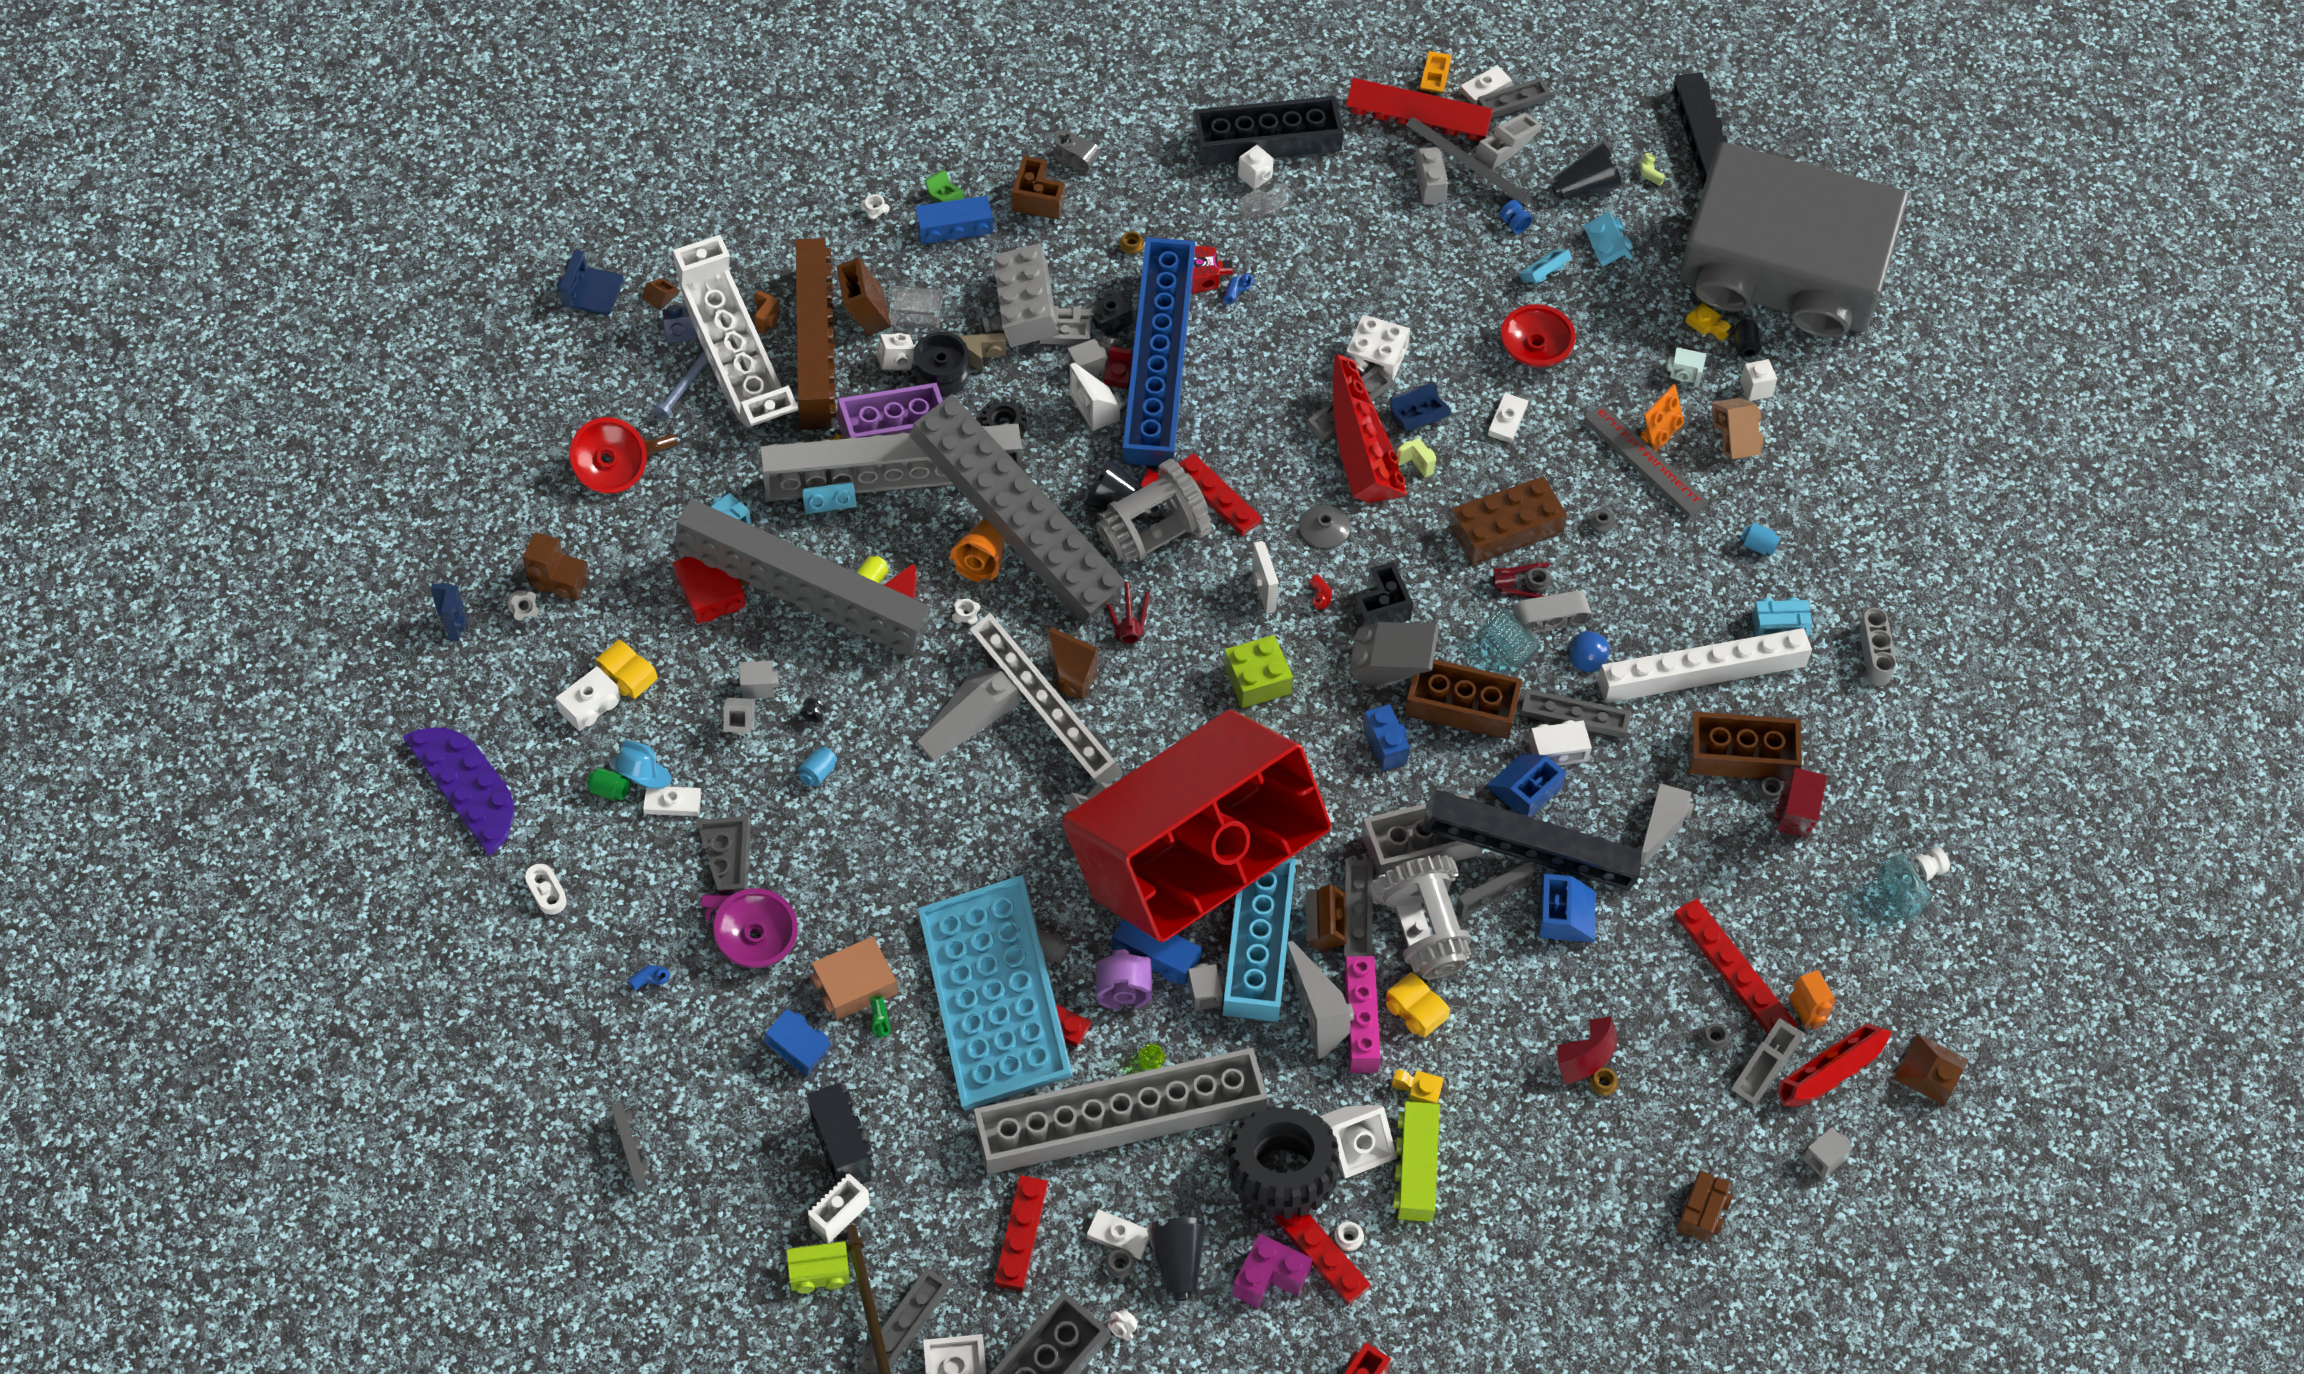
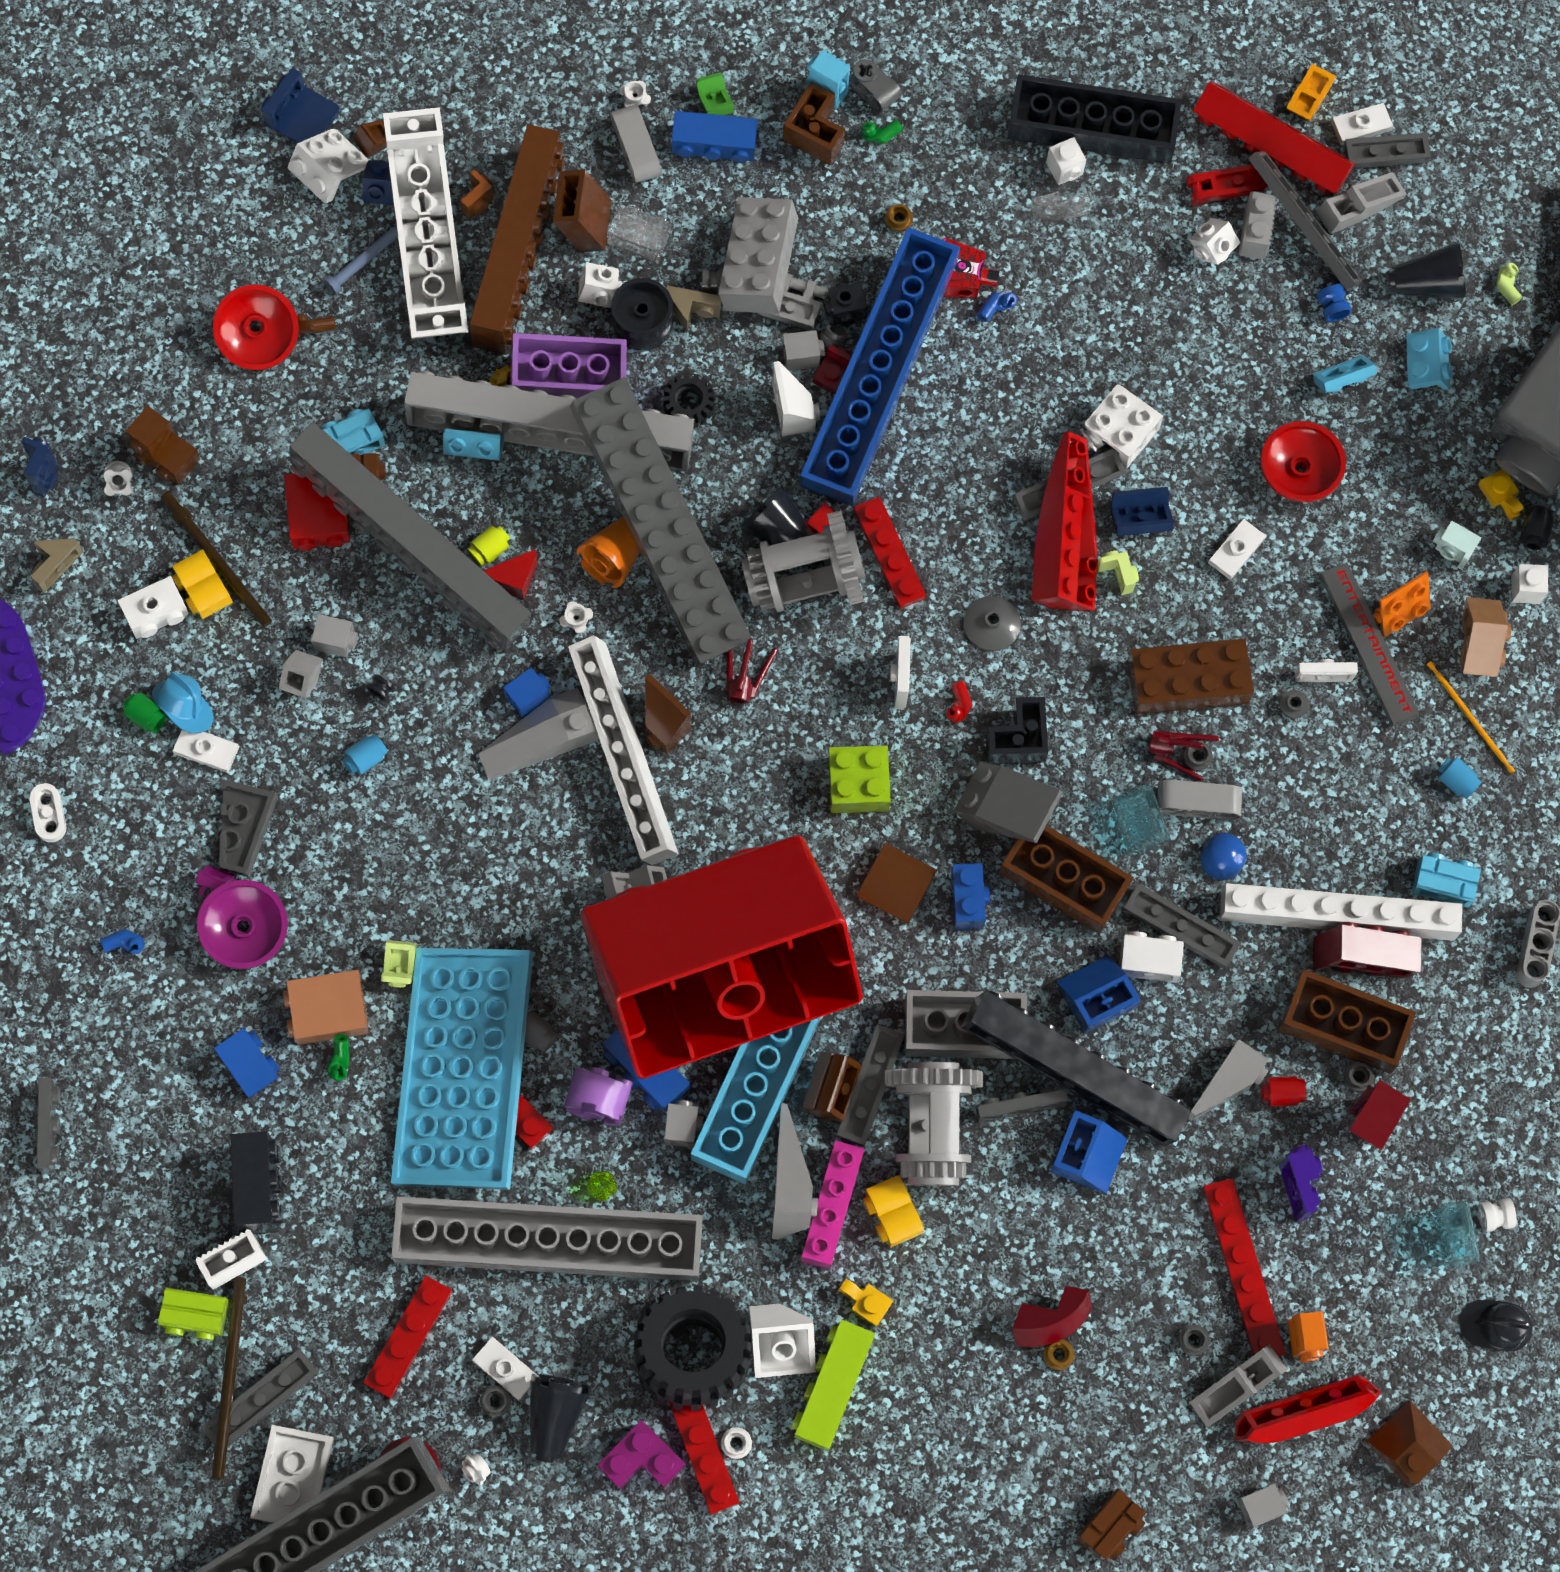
camera: 15 degrees right, 15 degrees up
(487, 681) = (59, 555): none -> dark tan slope
(592, 623) = (184, 518): none -> dark brown bar
(624, 320) = (326, 161): none -> white bracket
(889, 241) = (635, 143): none -> light grey beam
(906, 924) = (399, 963): none -> yellowish green bracket
(944, 679) = (527, 692): none -> blue brick
(1036, 144) = (829, 74): none -> medium azure brick
(1095, 187) = (880, 135): none -> green arm
(1323, 743) = (897, 883): none -> reddish brown slope
(1392, 153) = (1225, 184): none -> red plate
(1400, 194) = (1214, 241): none -> white brick
(1618, 488) = (1326, 671): none -> white plate
(1713, 817) = (1283, 1091): none -> red brick
(1739, 687) = (1367, 950): none -> wedge
(1751, 494) = (1472, 719): none -> light orange piece
(1754, 880) = (1299, 1173): none -> dark purple plate
(1965, 953) = (1496, 1325): none -> black piece

